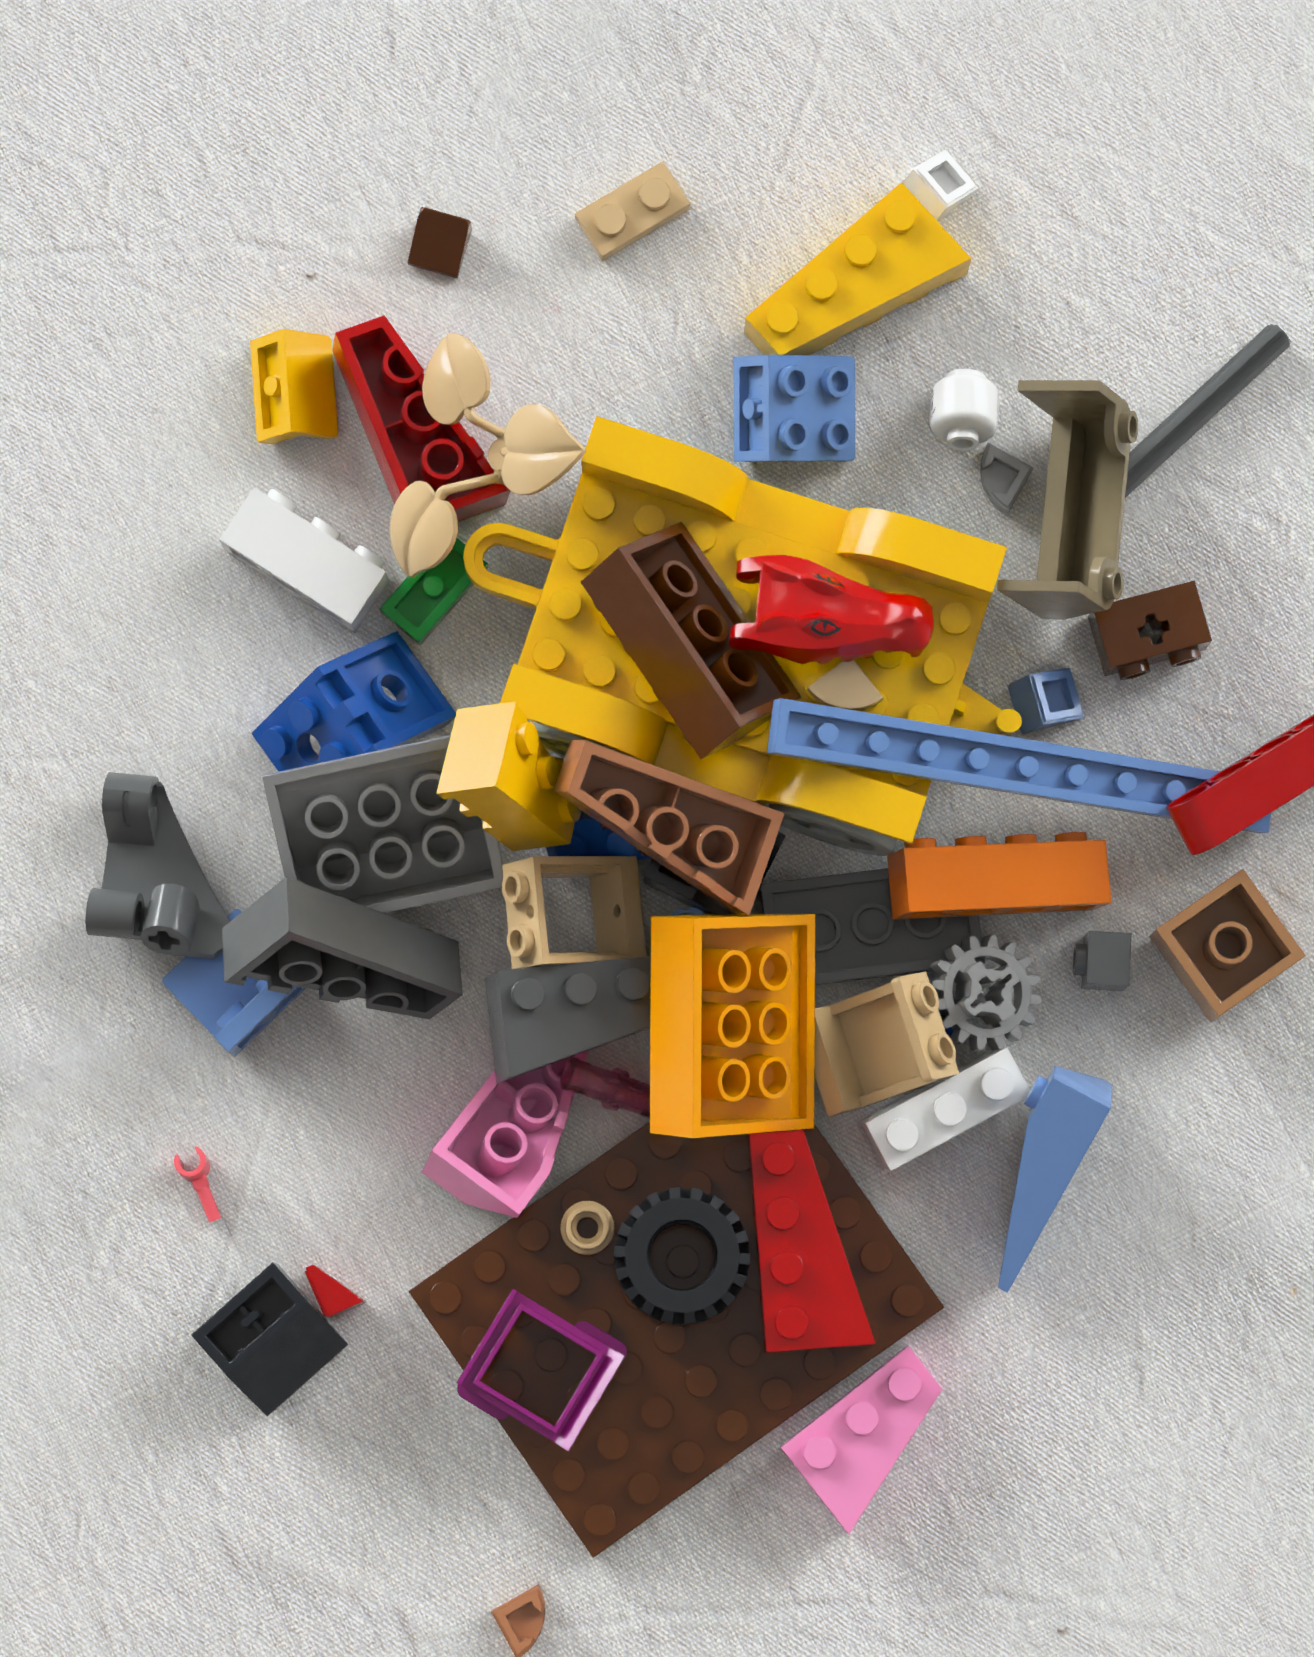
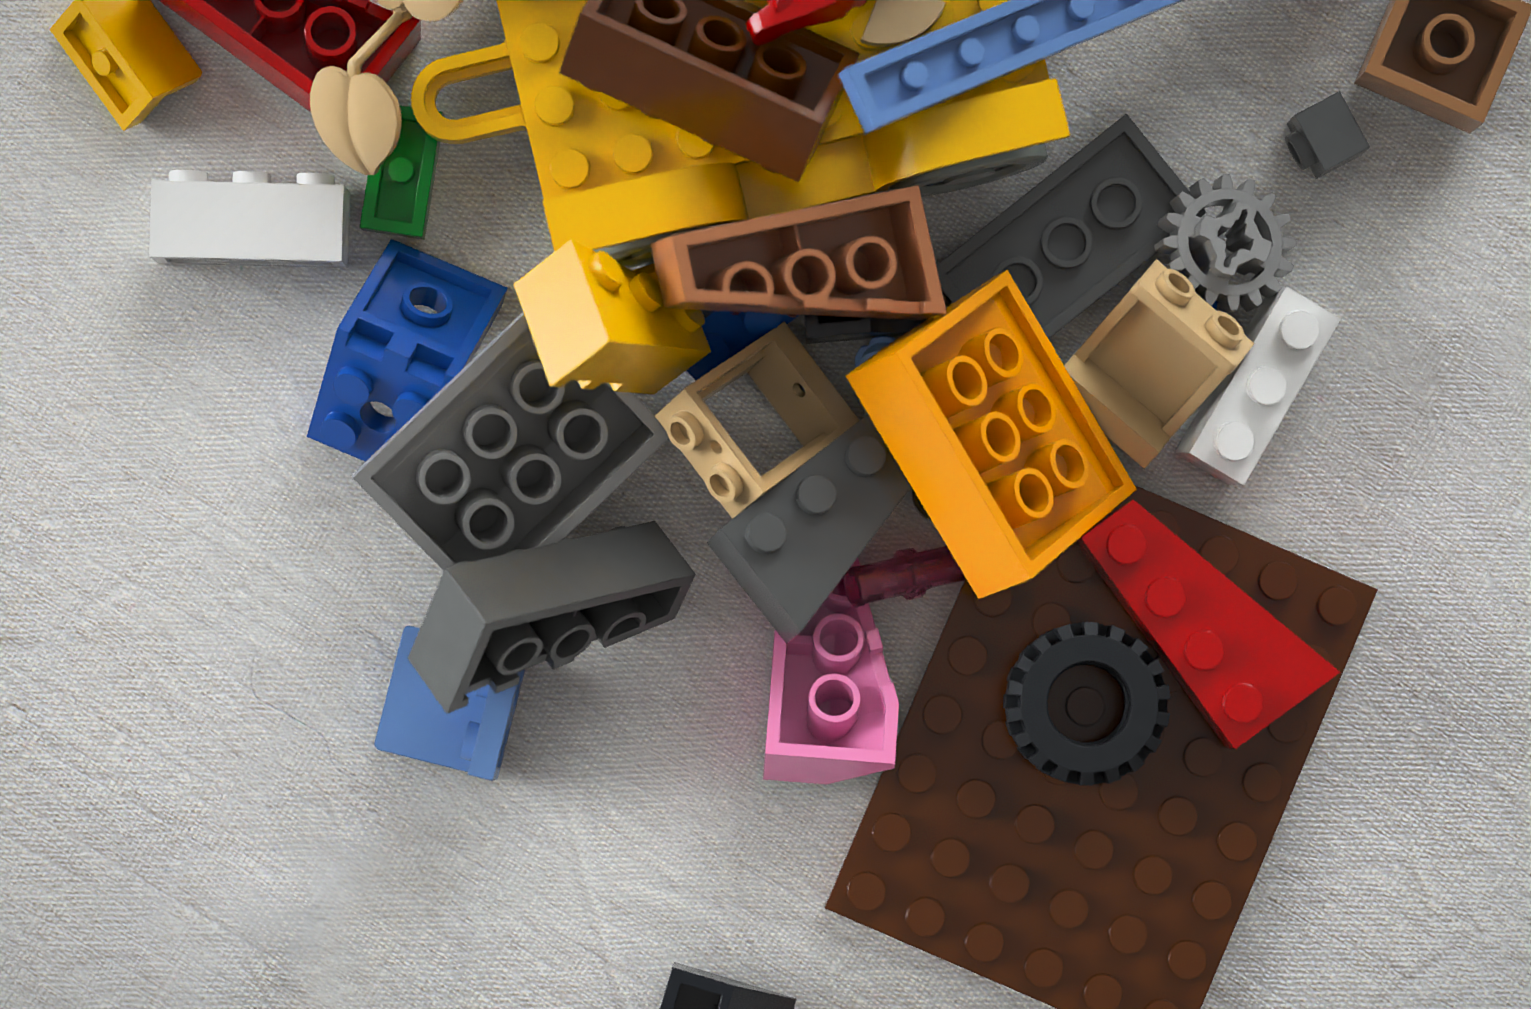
camera: 30 degrees left, 5 degrees up
(152, 876) = (298, 647): dark grey panel -> none
(200, 1183) = (544, 929): coral hand -> none
(331, 1294) = (748, 959): red slope -> none
(583, 1210) = (990, 732): tan plate -> none
(609, 1357) = (1078, 904): magenta piece -> none
(862, 1434) = (1377, 769): bright pink wedge -> none
(998, 877) = (1170, 116): orange brick -> none
(1059, 1131) = (1393, 344): medium blue wedge -> none

